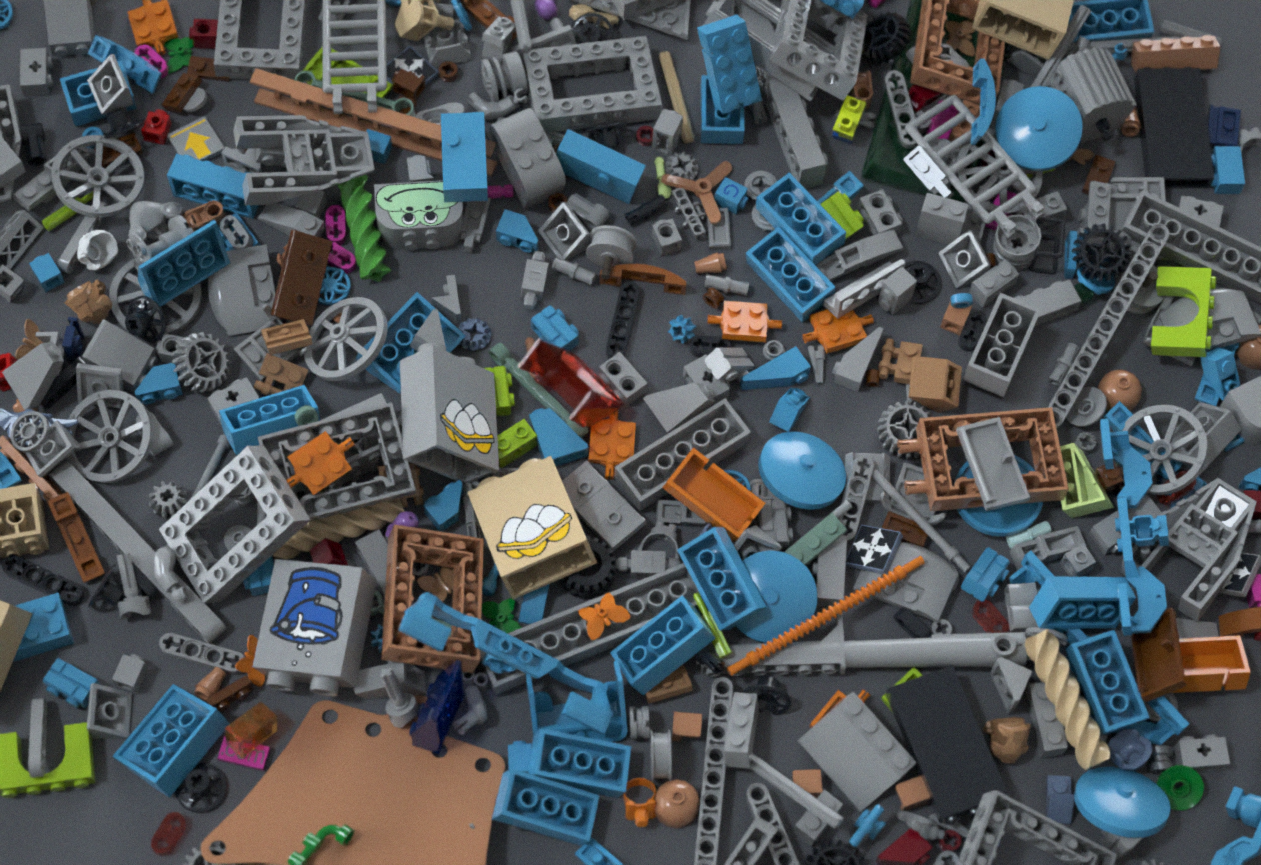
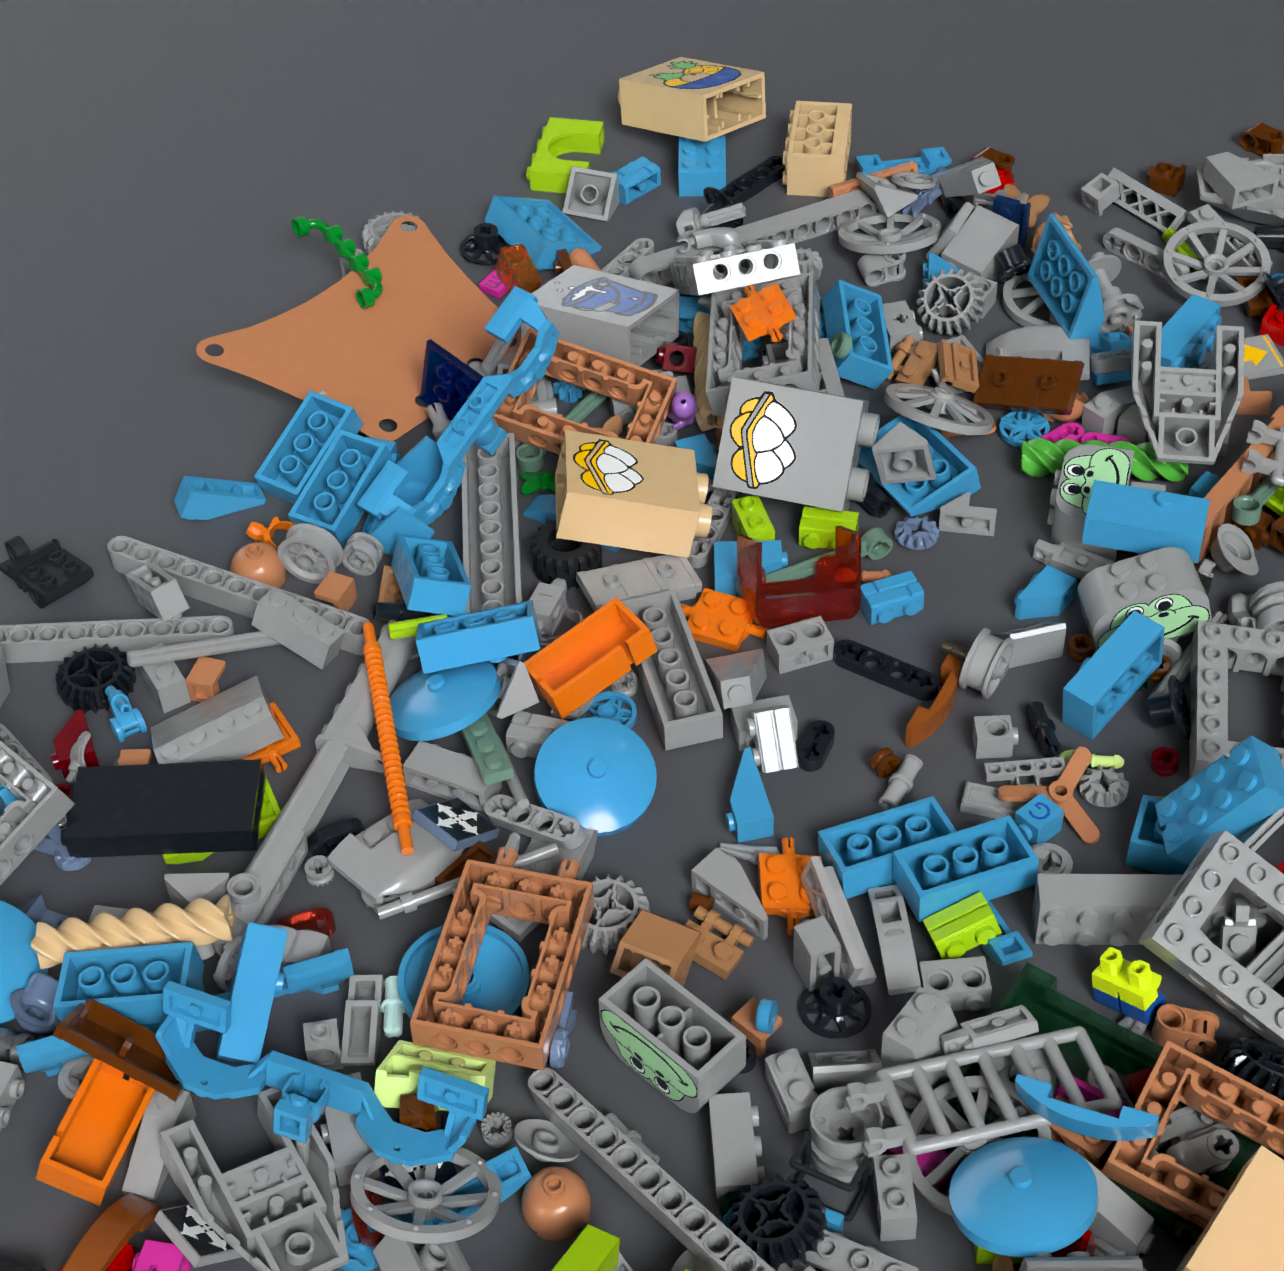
camera: 115 degrees right, 20 degrees down
(37, 741) = (587, 143): light grey beam -> none
(46, 272) = (1105, 219): dark azure brick -> none
(76, 537) = (816, 192): dark orange slope -> none
(97, 249) = (1129, 251): white hair -> none
(130, 673) = (623, 216): light grey brick -> none
(149, 217) = (1155, 295): light grey head -> none
(173, 836) = (452, 220): clear red beam -> none
(534, 280) = (970, 594): light grey piece -> none
(574, 270) = (970, 633): light grey pin -> none
(590, 214) = (1051, 672): light grey piece -> none
(601, 614) = (494, 533): orange piece -> none
(667, 132) = (1154, 764): light grey brick -> none
(681, 329) = (848, 715): dark azure gear -> none
(711, 264) = (937, 776): nougat cone -> none
(744, 321) = (837, 786): orange plate -> none
(769, 694) = (332, 672): black wheel -> none
(773, 345) = (785, 808): light grey plate -> none
(789, 409) = (691, 796): dark azure slope -> none
(900, 109) = (1124, 1044): light grey beam -> none
(985, 574) = (359, 929): dark azure brick -> none
(993, 464) = (483, 929): light grey container -> none
(1007, 737) = (133, 885): medium nougat helmet -> none

